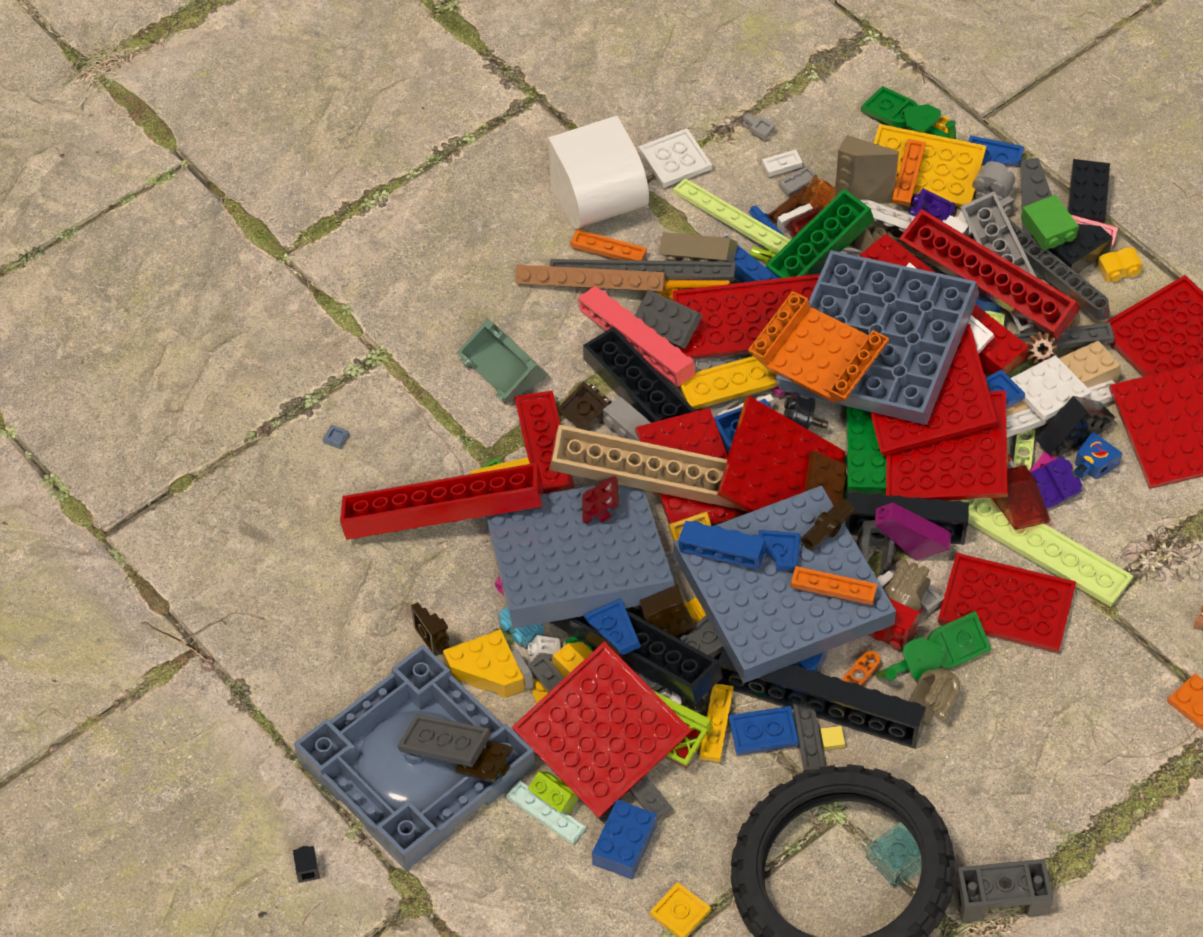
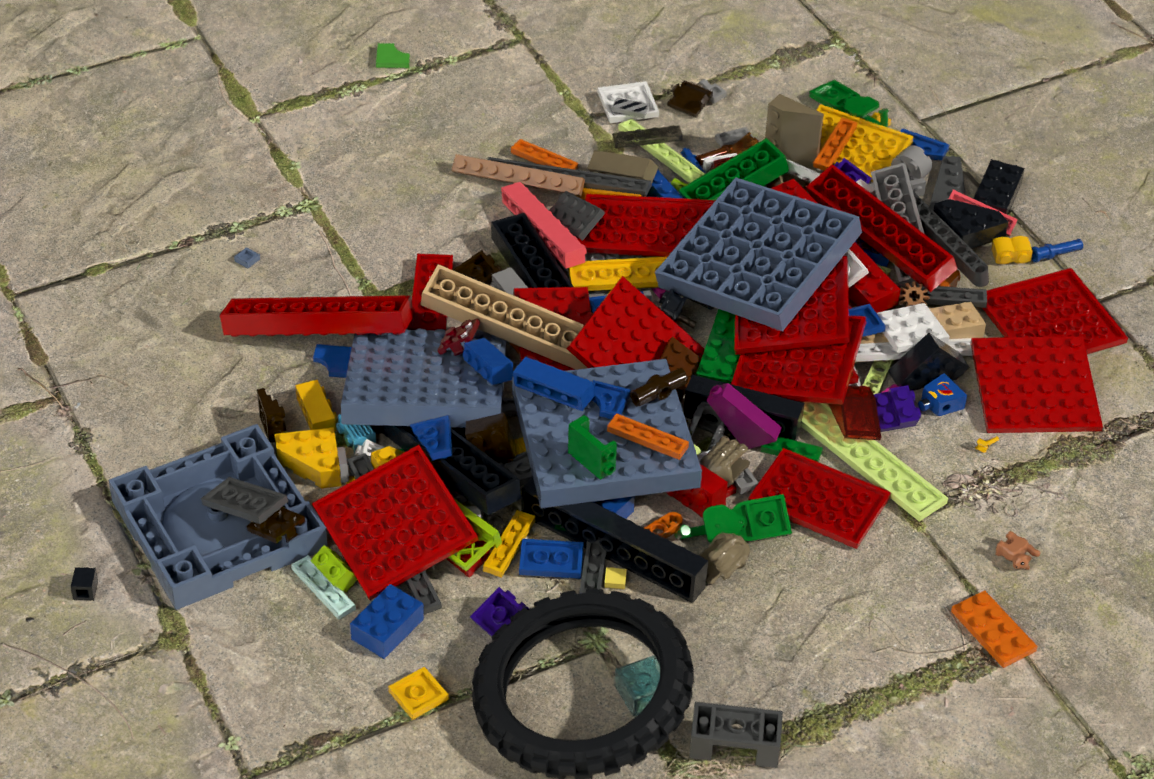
camera: 10 degrees right, 10 degrees down
(403, 149) = (390, 57): none -> bright green tile
(469, 541) = (333, 358): none -> blue tile
(471, 606) = (315, 406): none -> yellow brick
(501, 362) = (414, 224): sand green windscreen -> none
(596, 172) = (549, 92): white brick -> none
(642, 526) = (488, 361): none -> blue brick
(681, 167) = (630, 107): none -> light grey tile
(710, 200) = (647, 136): none -> clear smoke plate
(732, 805) = (496, 611): none -> dark purple plate
(738, 140) = (689, 98): none -> dark brown piece
(782, 163) = (723, 122): white plate -> none
(783, 617) = (589, 451): none -> green panel
(816, 349) = (694, 249): orange slope -> none
(977, 549) = (807, 450): none -> green plate
(1049, 222) = (950, 197): bright green brick -> none
(1149, 505) = (984, 445): none -> yellow hand
(1157, 257) = (1048, 251): none -> blue pin

